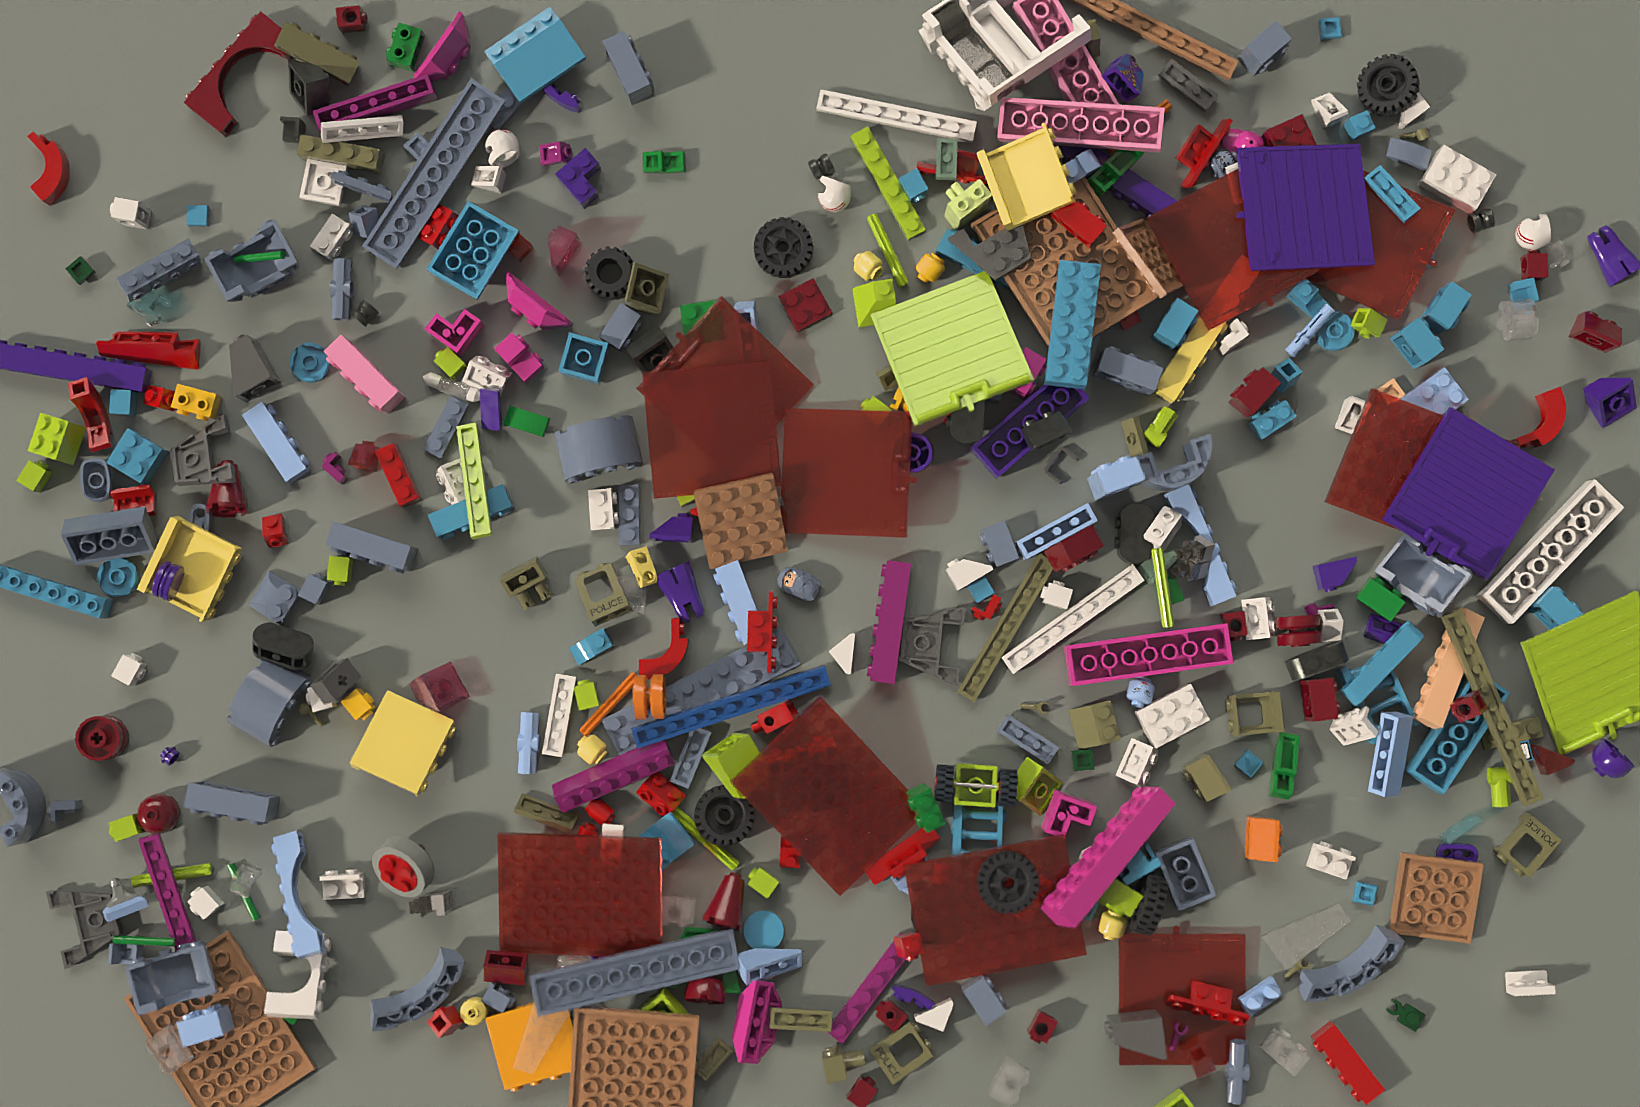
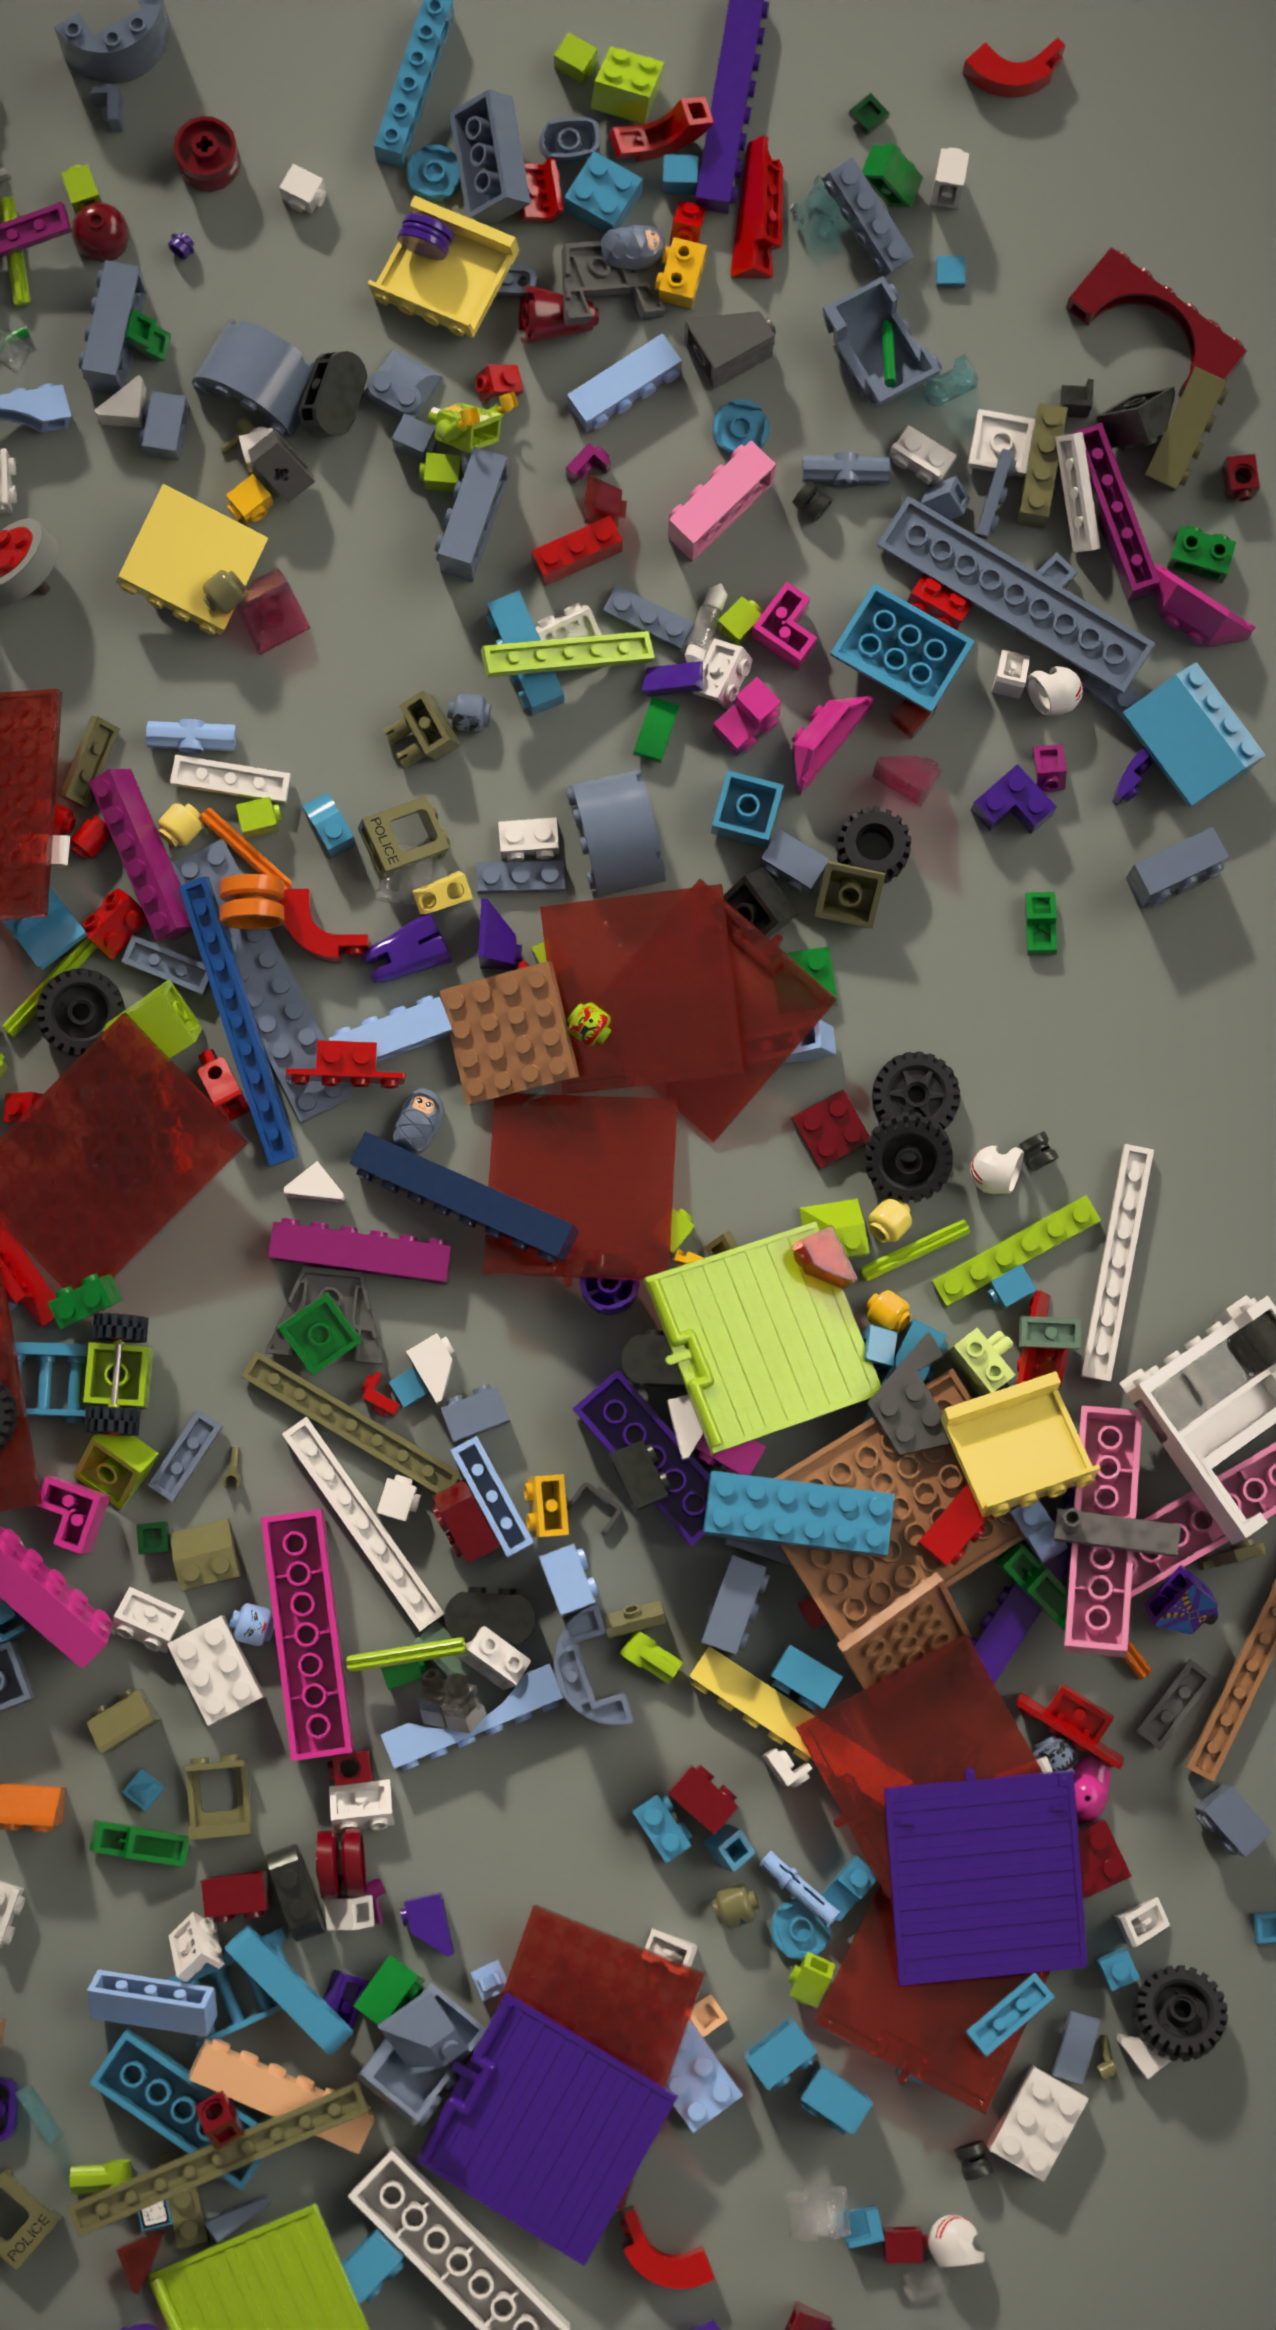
camera: 90 degrees right, 5 degrees down
(128, 253) = (892, 175): none -> green brick
(176, 436) = (633, 247): none -> sand blue piece
(238, 777) = (147, 337): none -> green slope
(280, 213) = (952, 383): none -> clear light blue leg
(289, 793) = (125, 406): none -> white slope
(303, 765) = (164, 425): none -> sand blue brick
(308, 549) = (470, 426): none -> lime torso
(428, 719) = (223, 591): none -> olive head
(513, 550) = (469, 712): none -> sand blue head
(736, 465) = (589, 1024): none -> head
(840, 248) = (908, 1135): none -> black wheel
(855, 550) = (465, 1198): none -> dark blue brick
(897, 307) = (825, 1258): none -> clear red slope
(946, 648) = (319, 1333): none -> green plate
(954, 272) = (879, 1347): none -> panel
(1011, 400) = (685, 1424): none -> white slope
(1061, 495) = (546, 1505): none -> yellow brick
(1085, 113) = (1117, 1532): none -> flat silver piece
(1321, 372) = (735, 1905): none -> olive head
(1369, 533) = (489, 1979): none -> light blue tile
(1409, 573) = (423, 2033): none -> sand blue slope
(1525, 700) = (228, 2221): none -> sand blue slope

